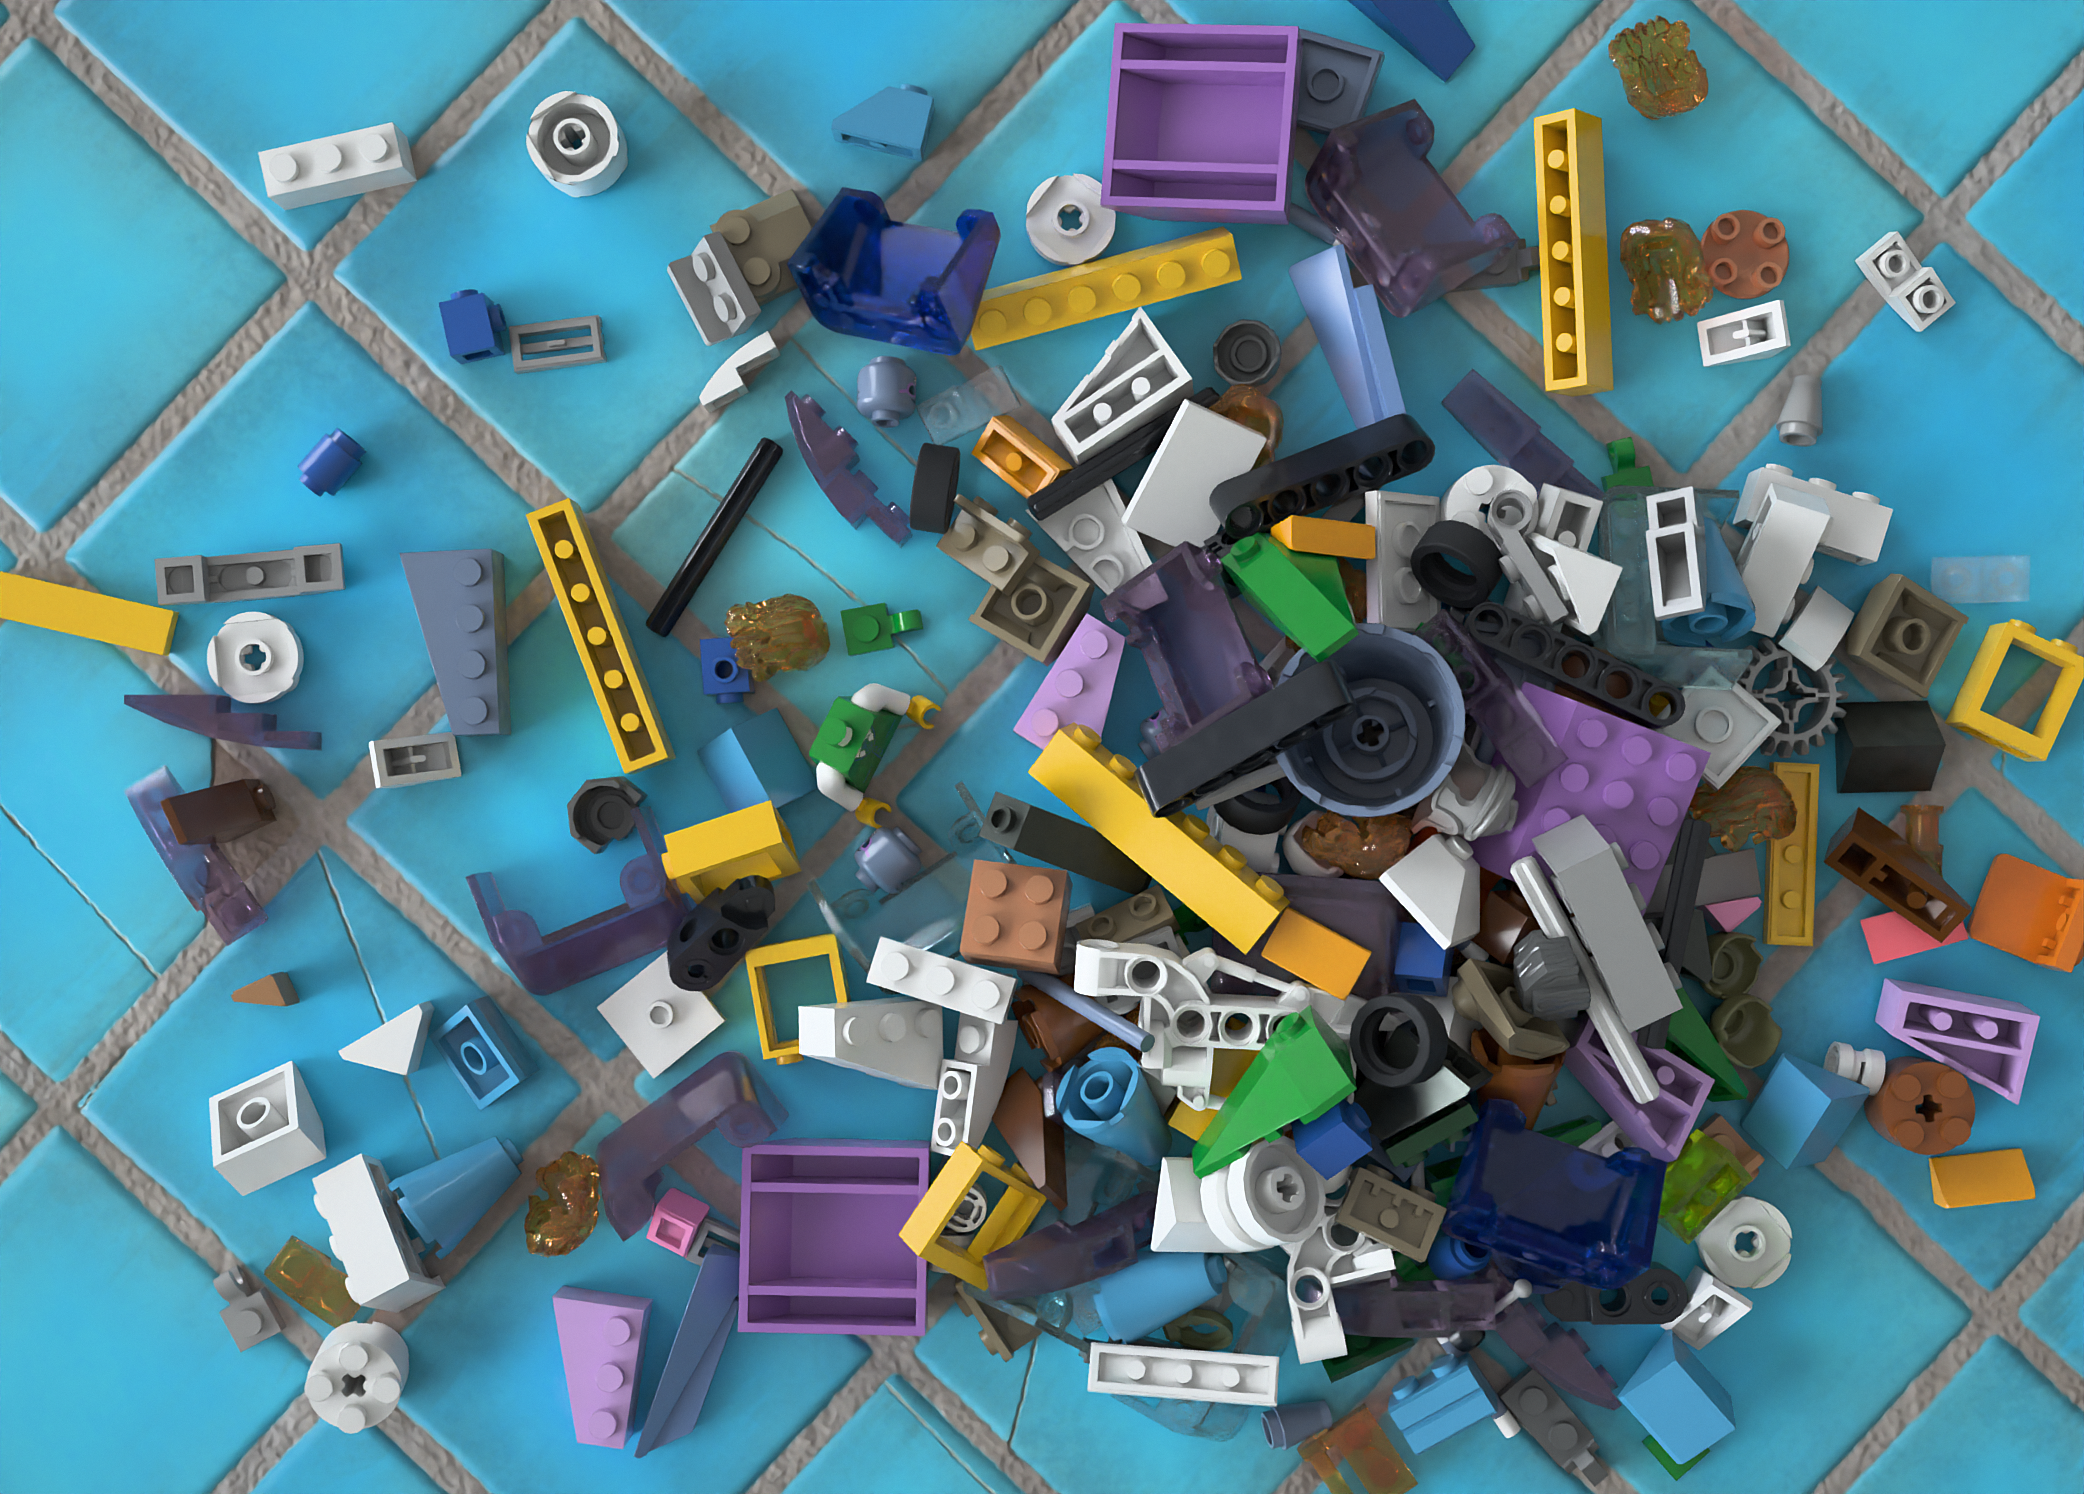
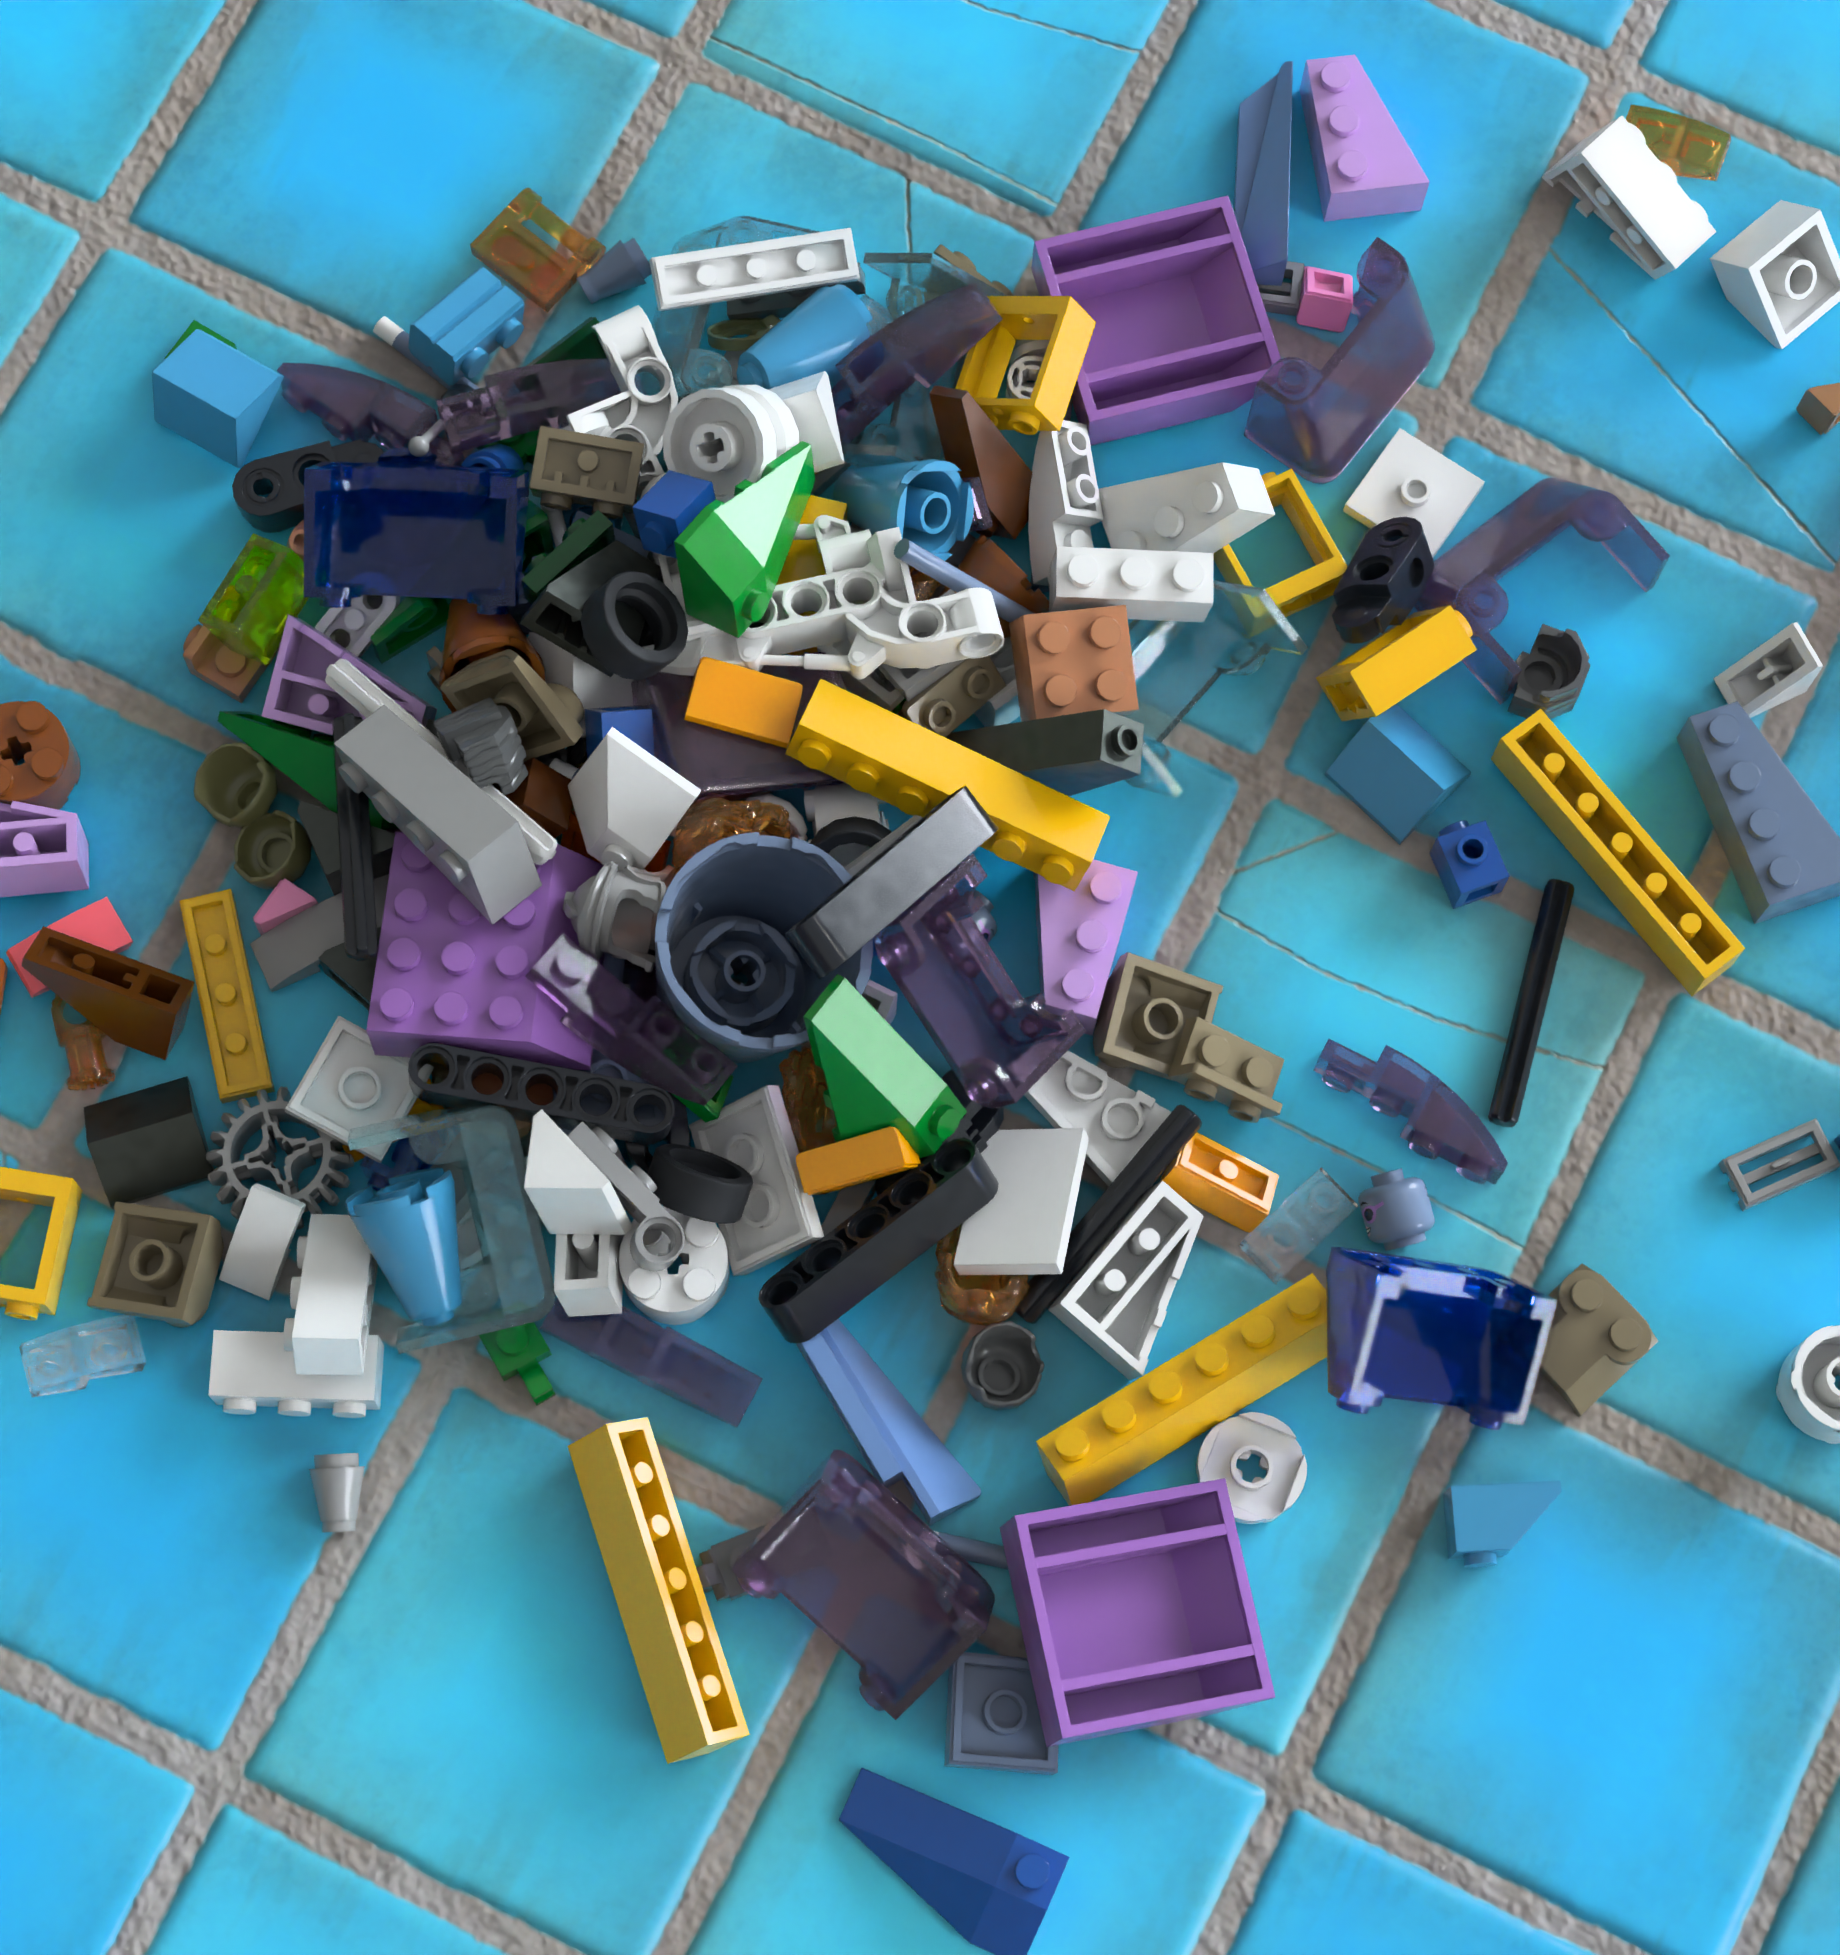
camera: 160 degrees right, 15 degrees down
(250, 1314) = (1730, 97): light grey plate -> none
(335, 1381) = (1598, 63): white brick -> none
(396, 1044) = (1681, 386): white slope -> none
(457, 1191) = (1565, 258): dark azure cone -> none
(483, 1051) = (1583, 409): dark azure slope -> none
(571, 1210) = (1442, 267): clear orange hair -> none
(714, 290) = (1629, 1263): light grey bracket -> none
(727, 381) = (1572, 1177): white slope -> none
(777, 635) = (1428, 906): clear orange hair -> none
(856, 740) = (1303, 820): torso -> none
(872, 628) = (1321, 952): green plate -> none
(887, 860) = (1226, 712): sand blue head -> none
(934, 488) = (1308, 1111): black tyre -> none
(1553, 1424) = (336, 339): dark grey hinge -> none
(1658, 68) = (616, 1843): clear orange hair -> none
(1665, 268) = (542, 1607): clear orange hair -> none
(1677, 553) = (457, 1244): light grey slope -> none
(1709, 1309) = (203, 499): white slope -> none
(1744, 335) = (432, 1556): white slope -> none
(1745, 253) = (452, 1658): nougat dish -> none
(1746, 804) = (294, 1017): clear orange hair -> none
(1771, 1243) = (175, 547): white plate -> none
(1802, 1111) = (151, 716): dark azure slope -> none
(1863, 1066) = (102, 782): white wheel -> none
(1903, 283) = (251, 1683): white slope -> none

